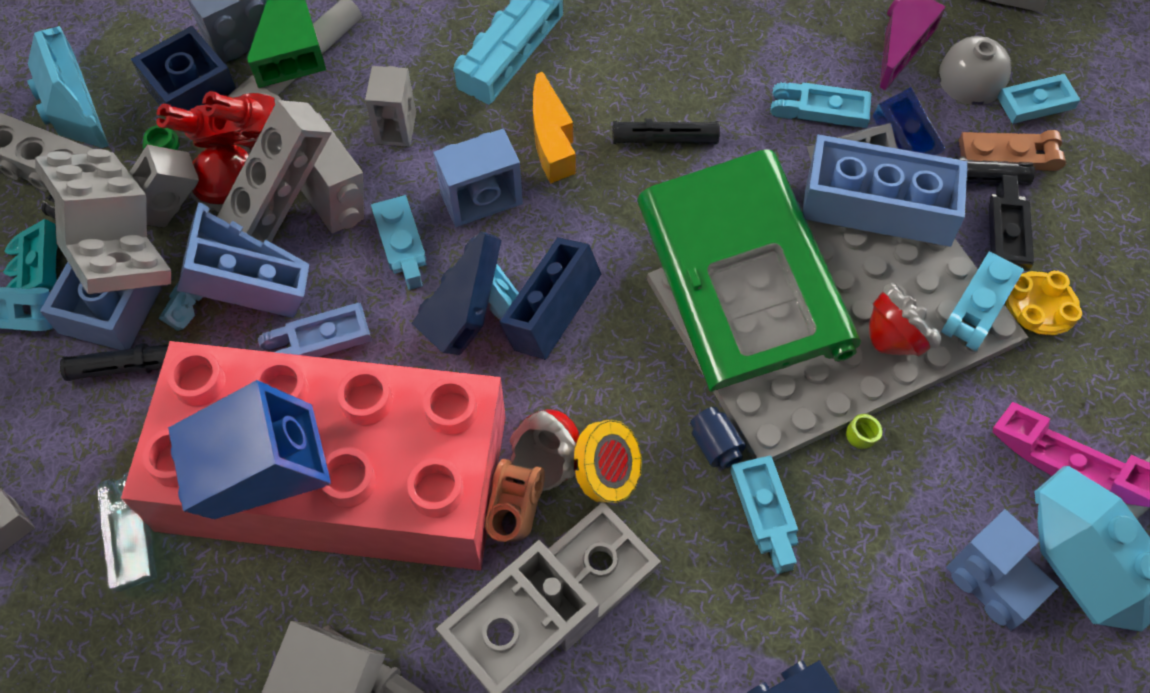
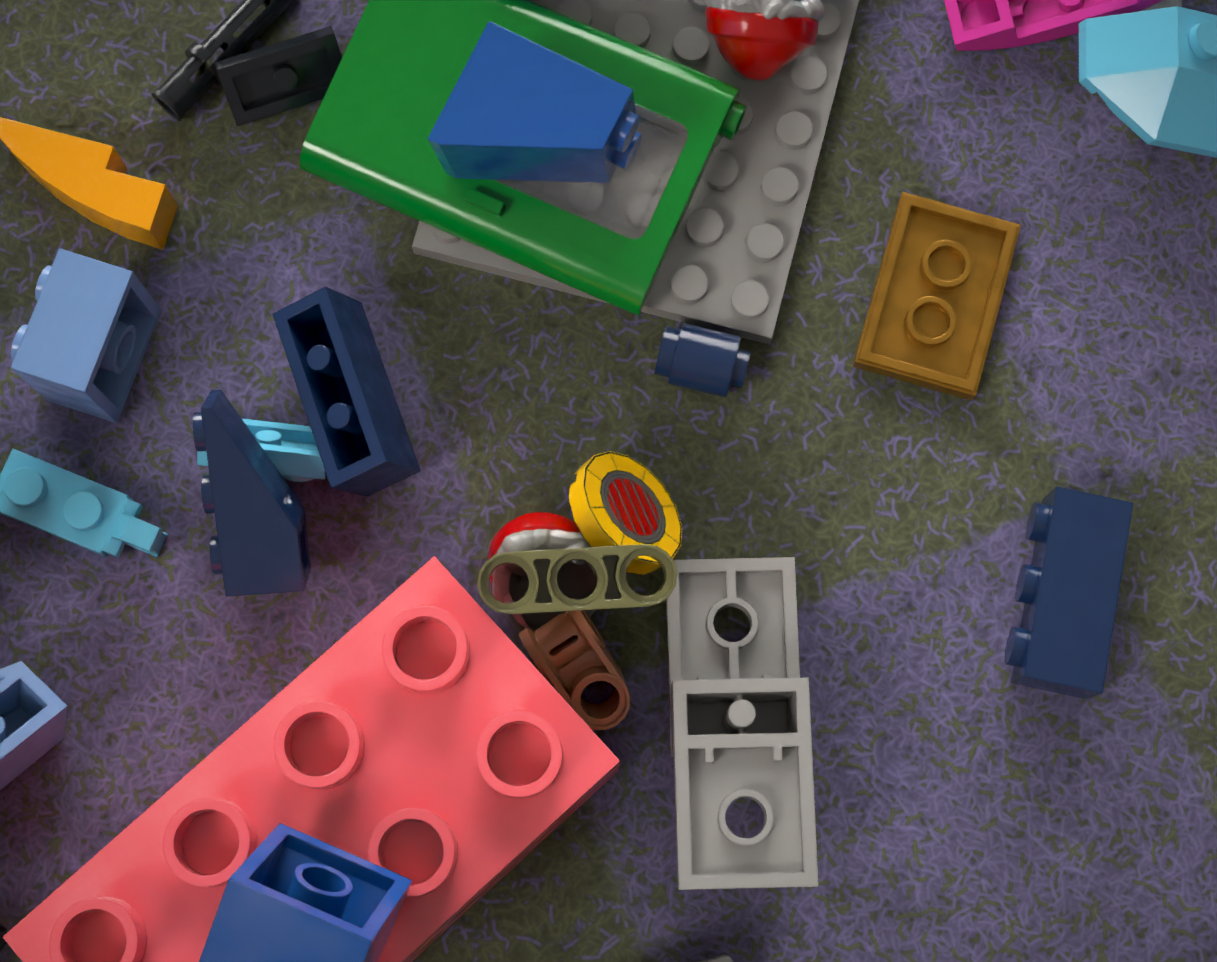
camera: 50 degrees left, 15 degrees up
(320, 333) = (126, 727): medium blue hinge -> none
(541, 433) = (610, 571): none -> olive beam
(667, 158) = (279, 75): none -> black plate
(746, 254) = (533, 116): none -> blue slope
(767, 510) = (833, 382): medium azure hinge -> none
(862, 526) = (937, 296): none -> pearl gold tile
(864, 431) = (836, 188): lime hinge -> none
(1001, 573) = (1120, 201): medium blue brick -> none

